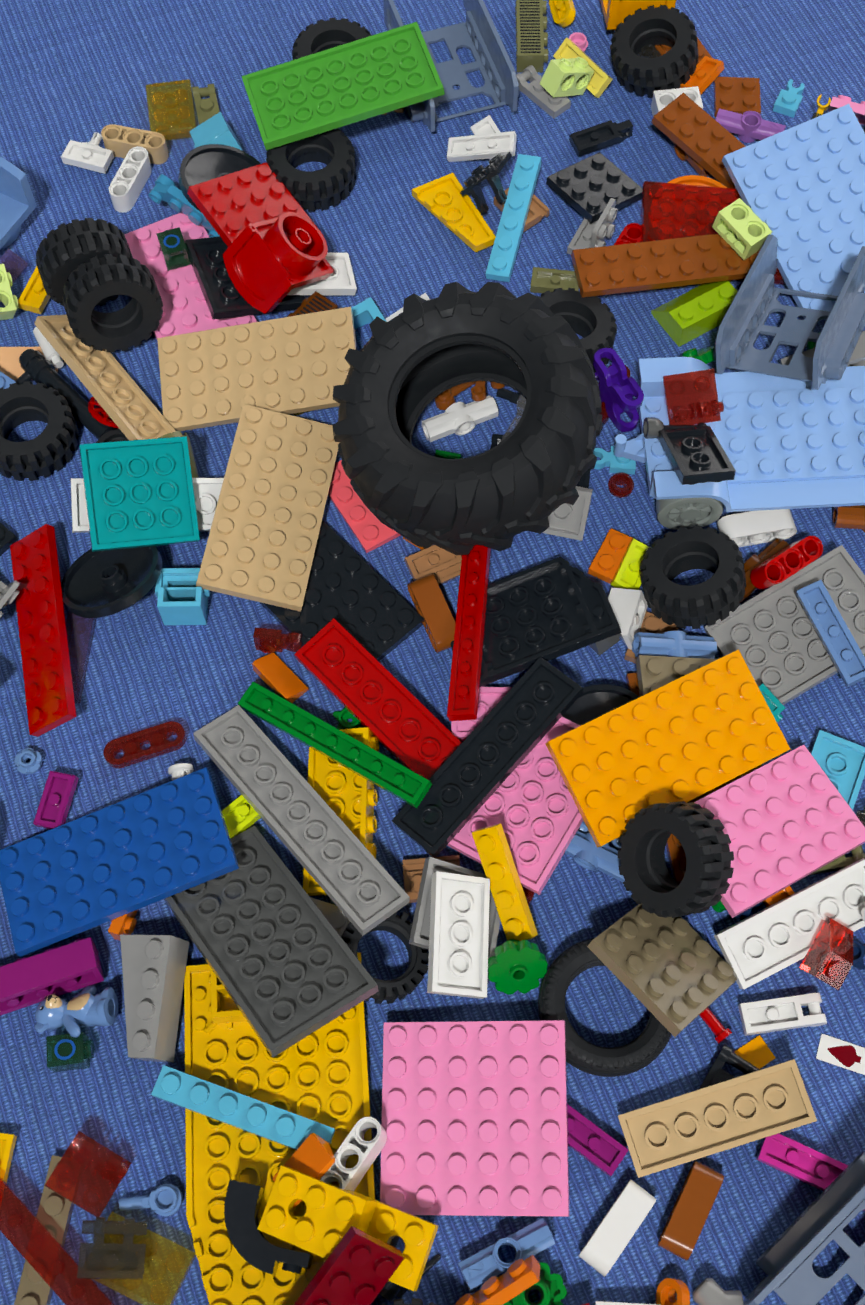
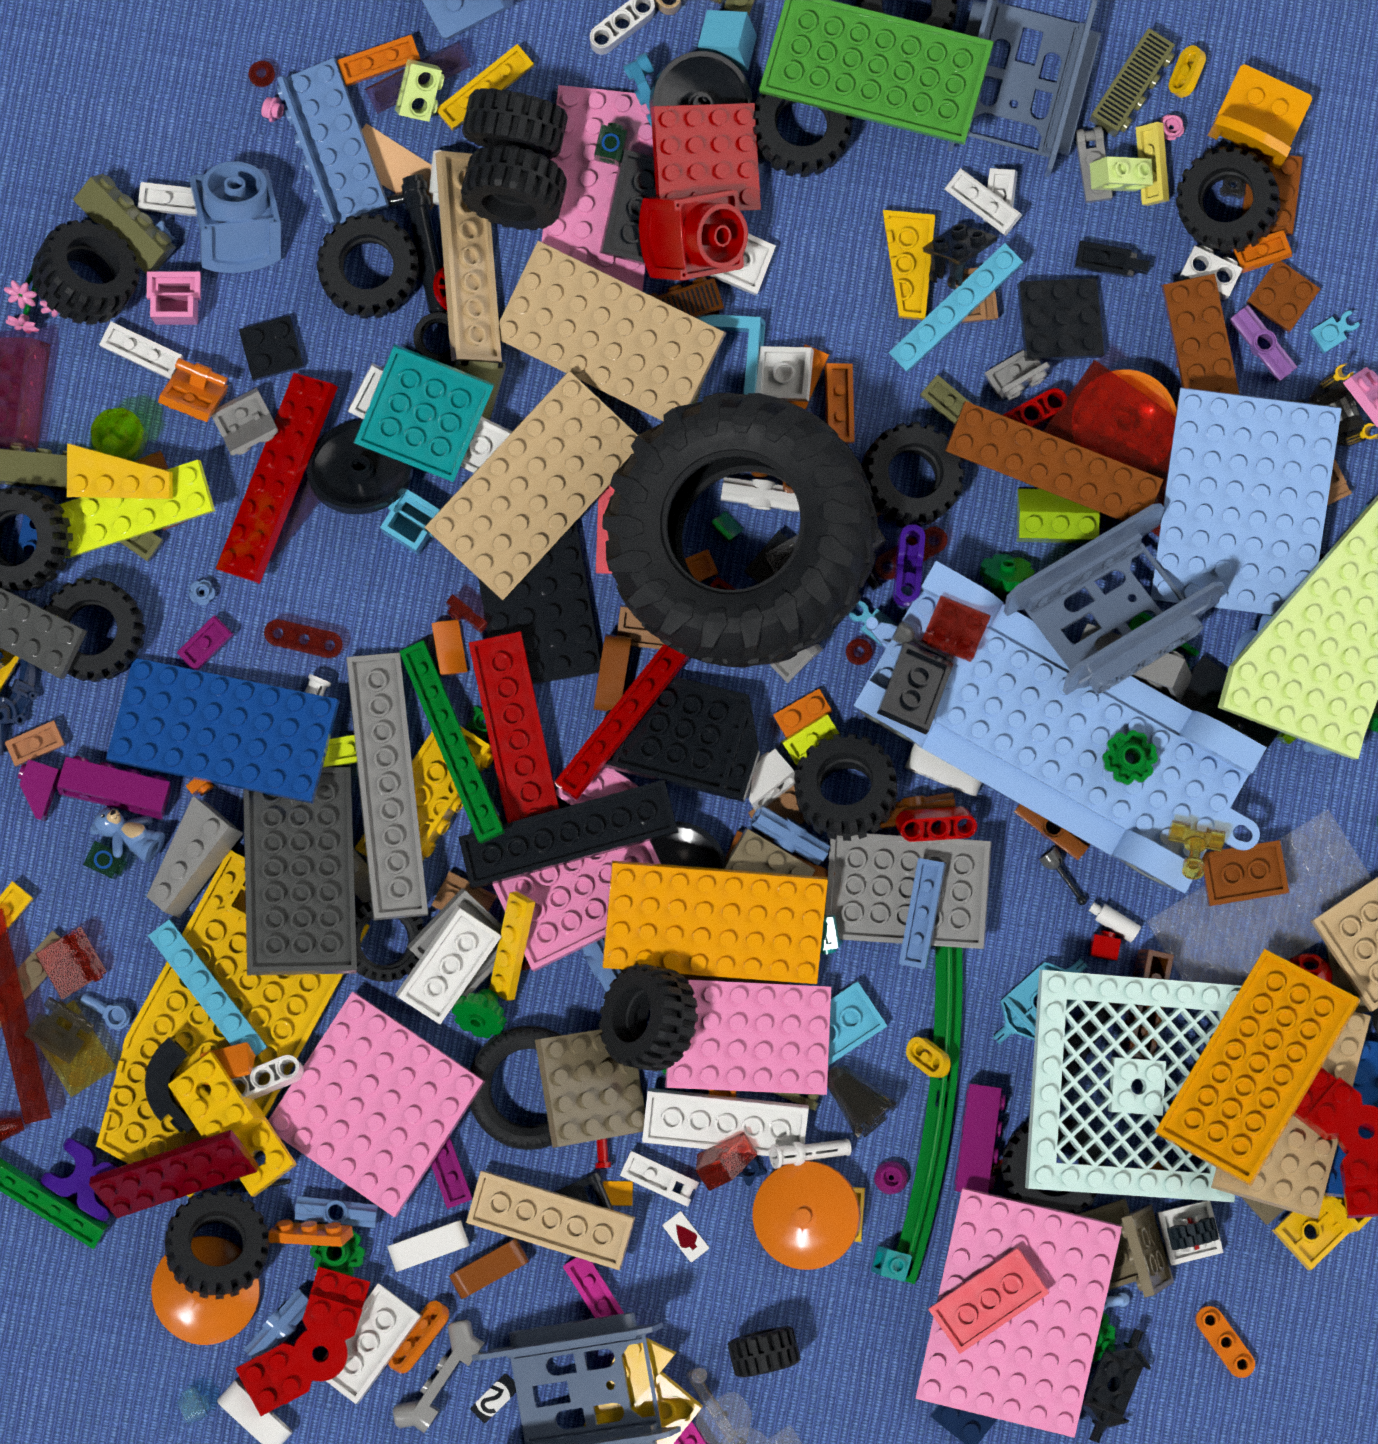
camera: 30 degrees right, 20 degrees up
(741, 228) = (1131, 478): yellowish green brick -> none

